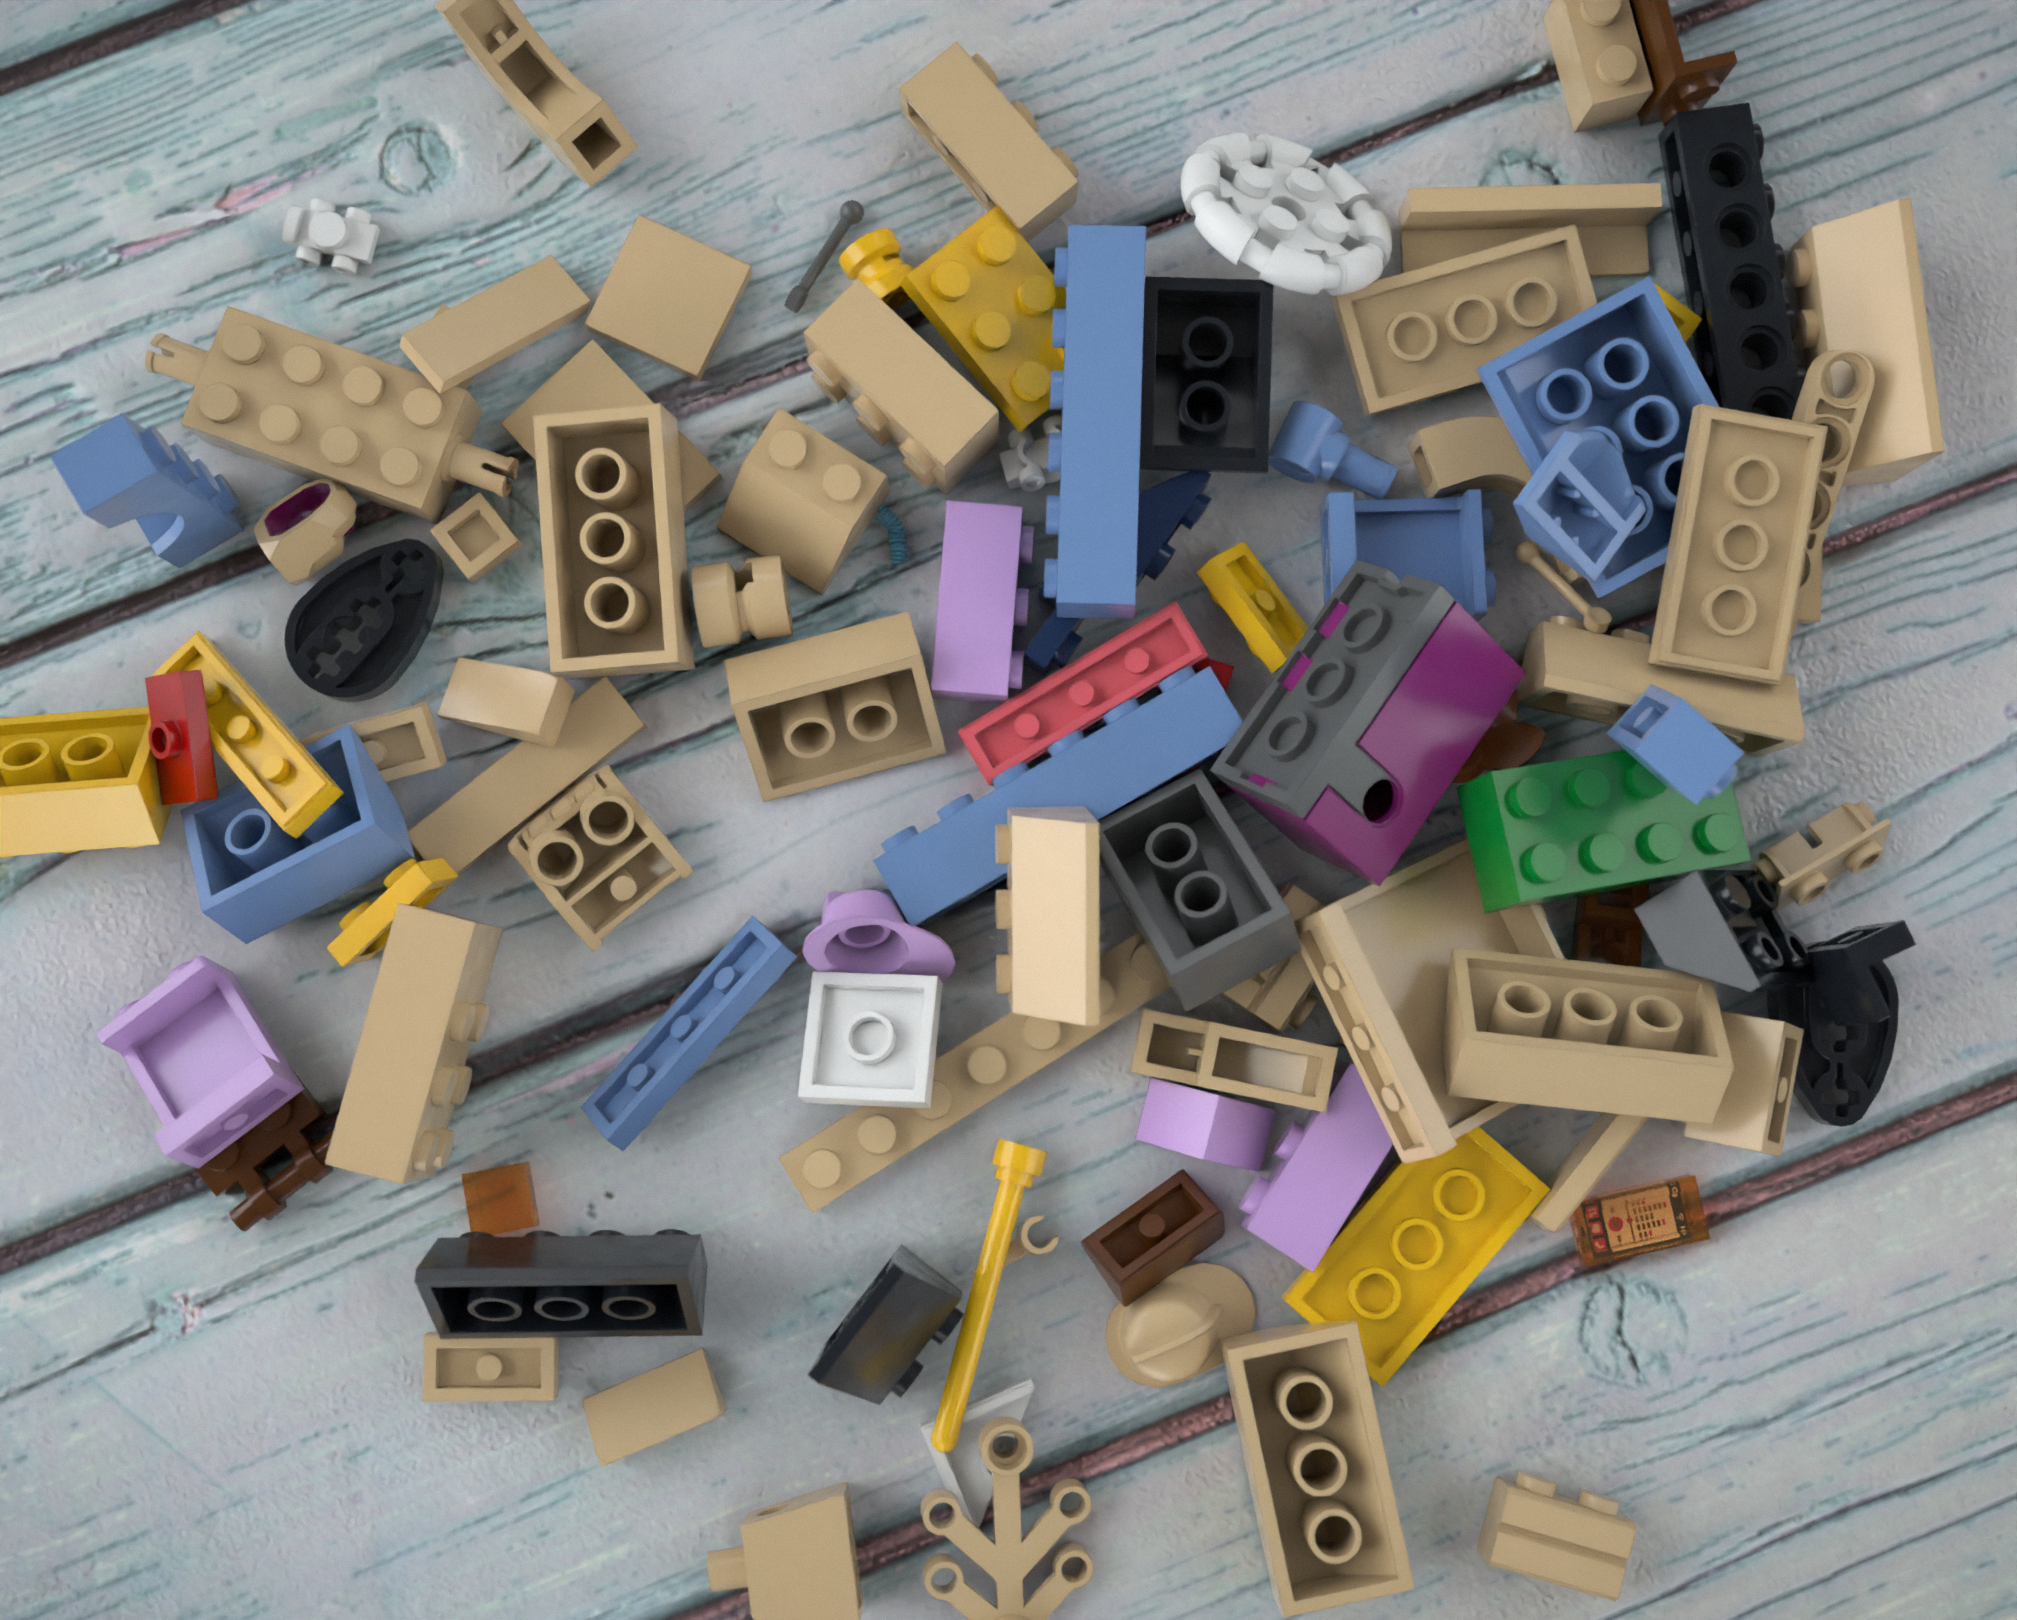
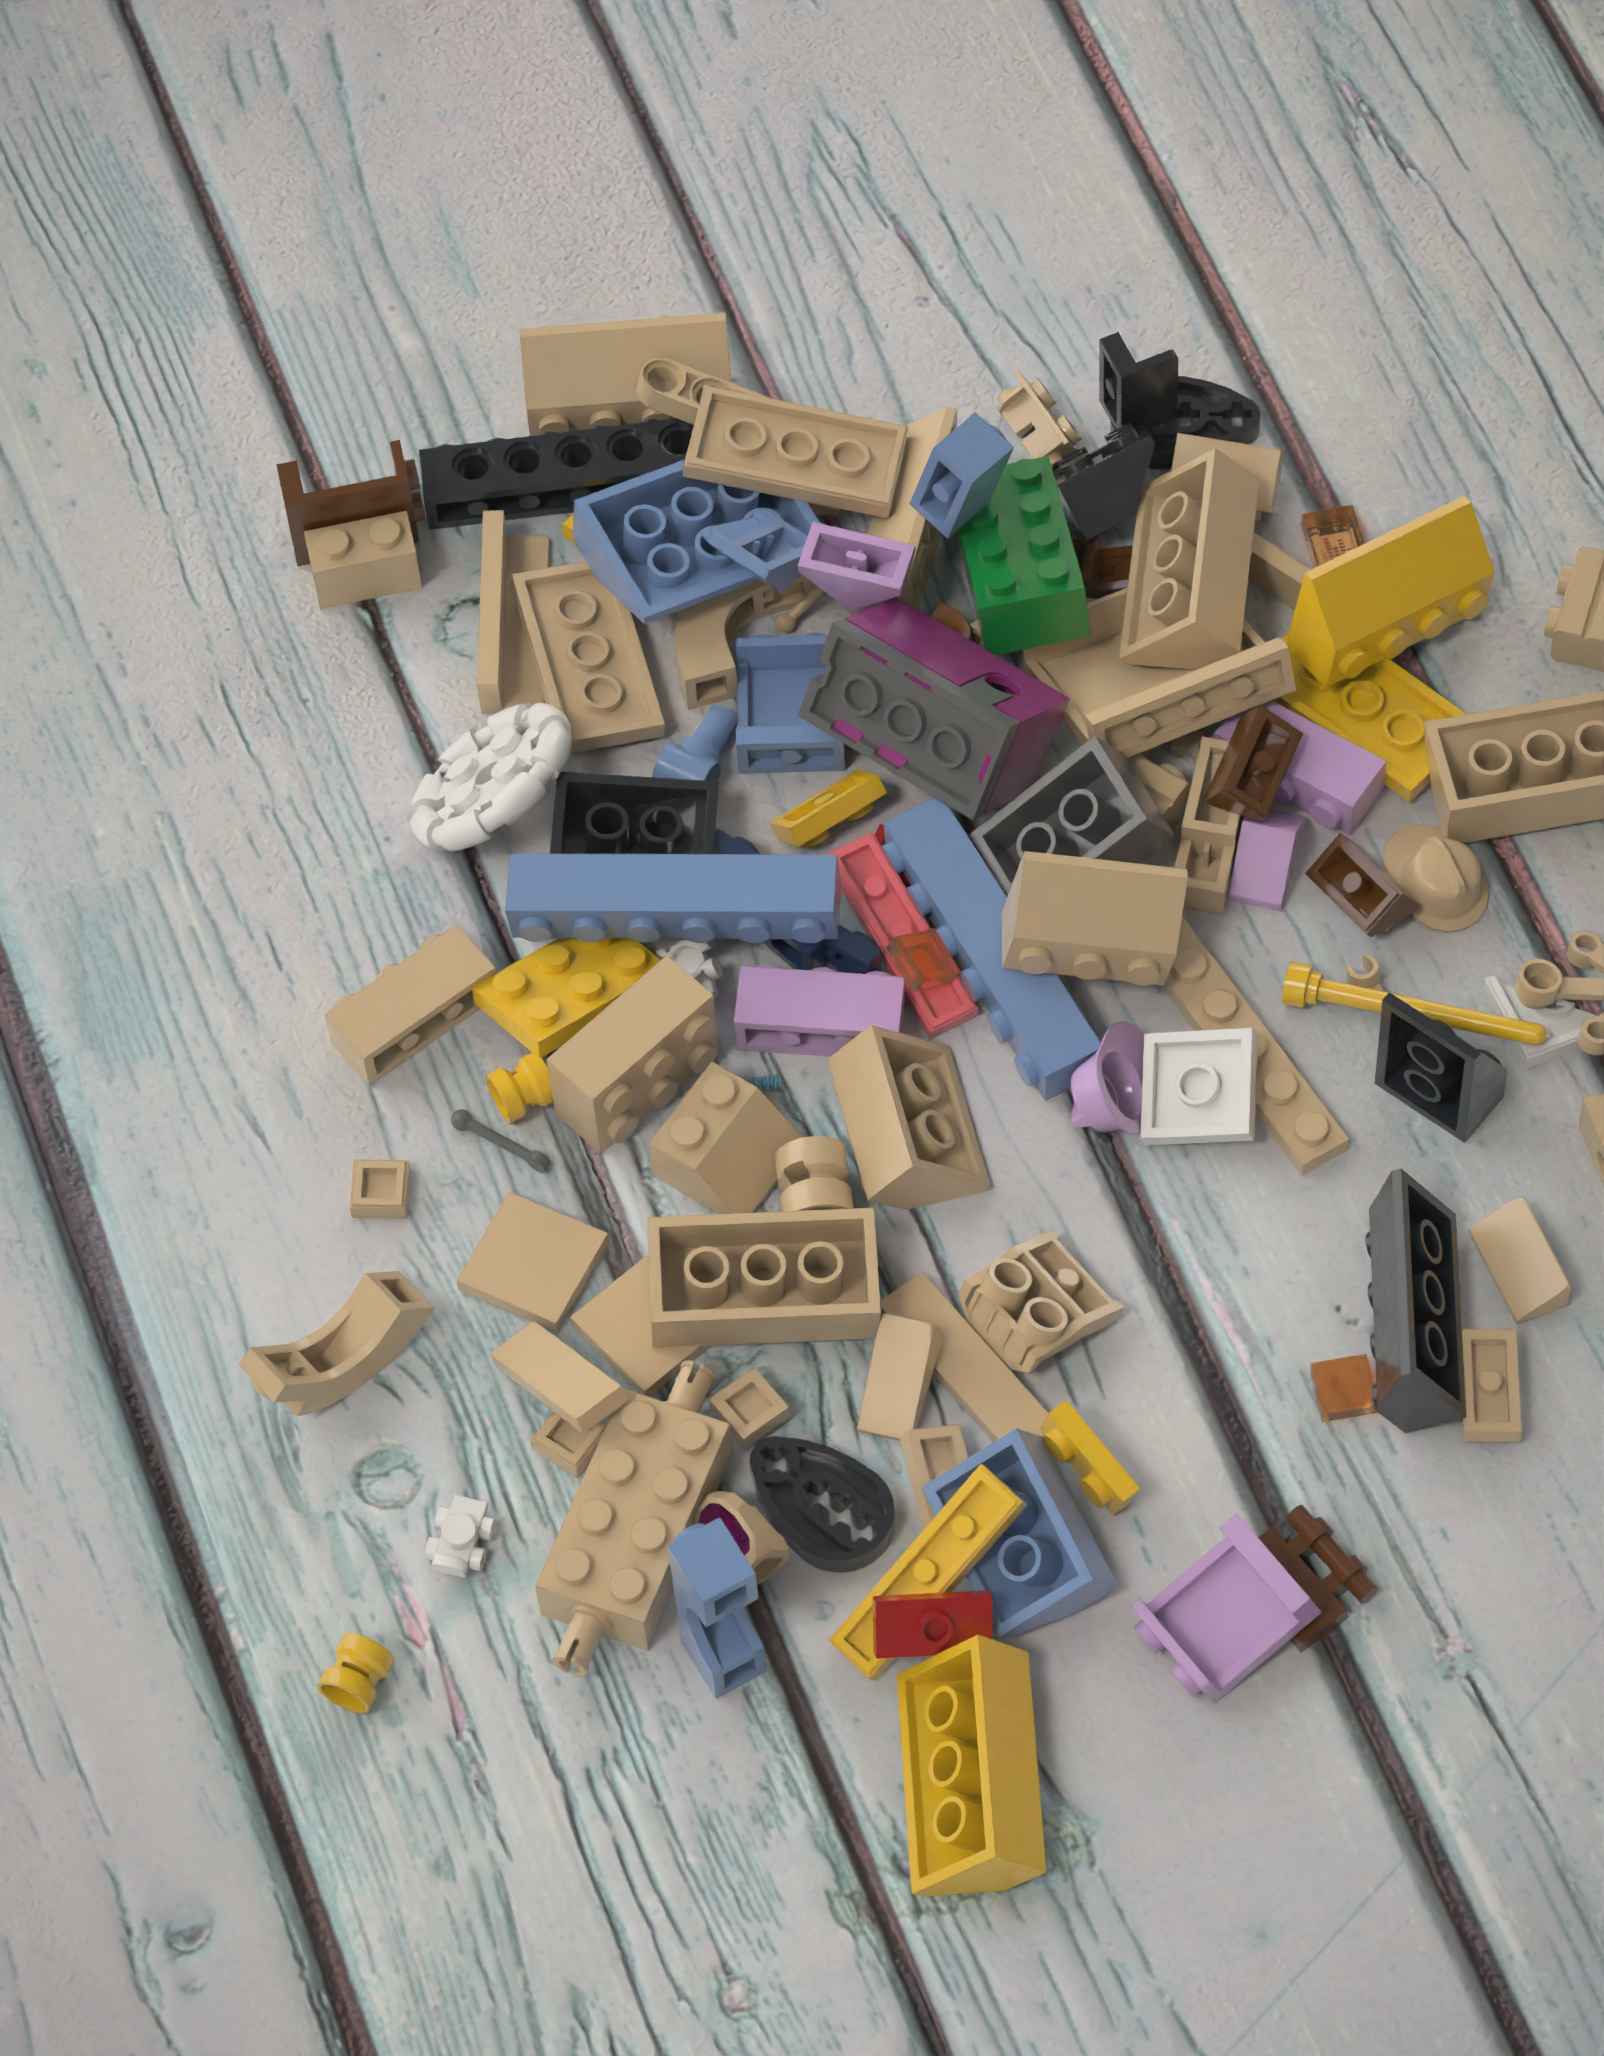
camera: 80 degrees left, 25 degrees down
(156, 129) = (355, 1673): none -> yellow wheel
(415, 1047) = (1209, 1424): tan brick -> none
(687, 1033) = (1195, 1232): medium blue plate -> none
(763, 128) = (380, 1188): none -> tan tile
(1029, 717) = (923, 960): none -> clear orange tile
(1292, 1109) = (1254, 764): none -> reddish brown slope
(1546, 1289) = (1391, 593): none -> yellow slope
(1559, 618) = (855, 565): none -> lavender slope

